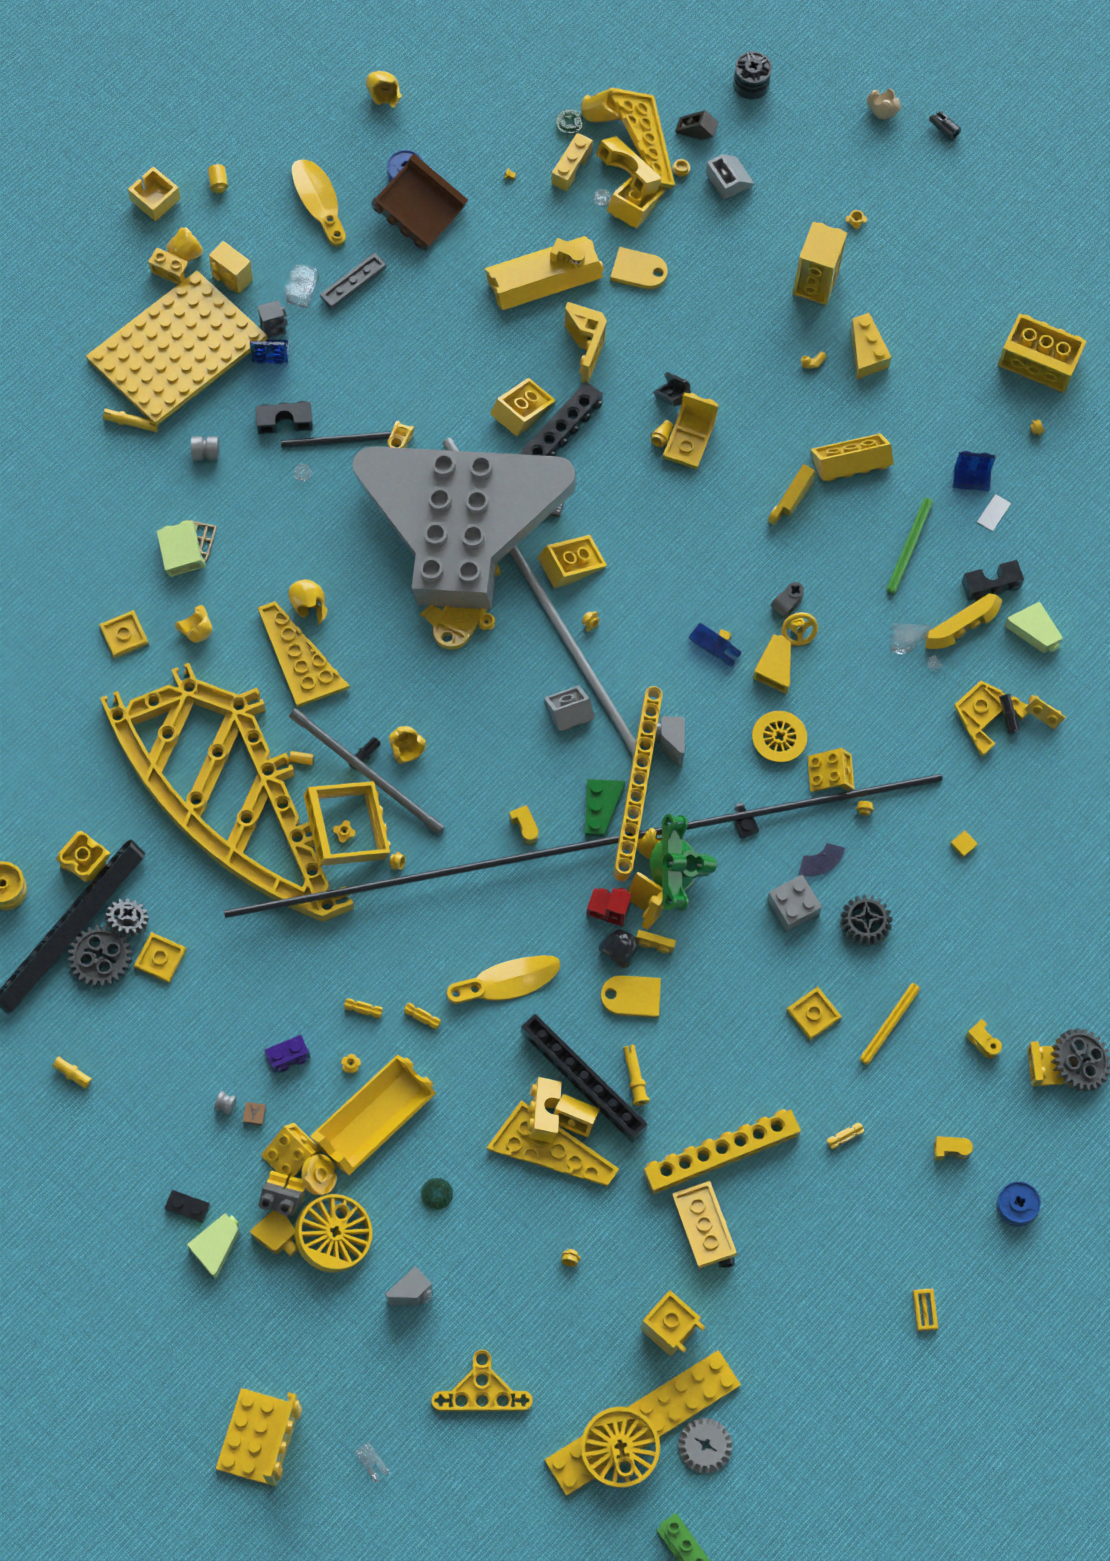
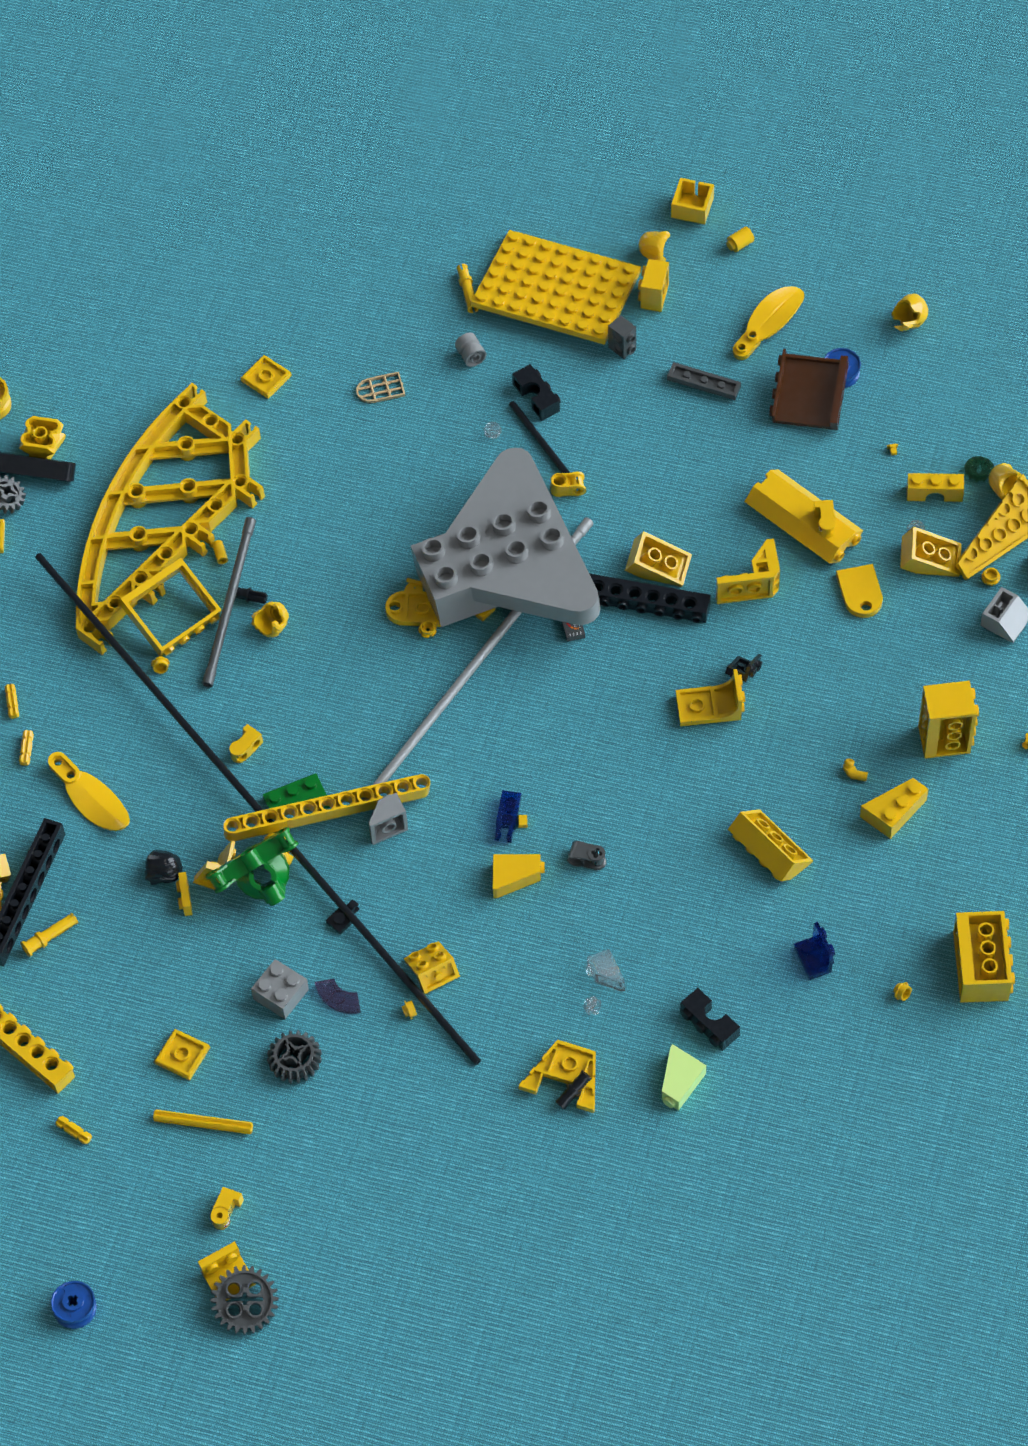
camera: 70 degrees right, 10 degrees down
(167, 266) = (629, 241): yellow bracket -> none
(180, 548) = (363, 374): yellowish green panel -> none
(196, 626) = (298, 420): yellow hair -> none
(270, 351) = (597, 354): clear blue bracket -> none
(301, 285) = (673, 346): clear brick -> none
(303, 665) = (308, 512): yellow wing -> none
(306, 595) = (369, 482): yellow helmet -> none
(343, 837) = (168, 618): yellow plate -> none
(569, 708) = (376, 728): light grey slope -> none
(571, 560) = (525, 666): yellow slope -> none
(590, 620) = (473, 707): yellow plate -> none
(610, 906) = (199, 842): red brick -> none
(616, 153) = (965, 515): yellow arch -> none
(633, 997) = (126, 902): yellow tile -> none
(662, 433) = (697, 680): yellow cone -> none
(776, 718) = (438, 890): yellow piece -> none
(794, 494) = (700, 811): yellow piece -> none
(795, 621) = (562, 874): yellow piece -> none
(909, 545) = (706, 934): bright green axle -> none
(952, 1147) = (106, 1229): yellow leg -> none
(956, 626) = (654, 1013): yellow brick -> none
(963, 843) = (419, 1110): yellow tile -> none
(994, 512) = (788, 993): white sticker -> none
(1044, 712) = (593, 1111): yellow hinge -> none

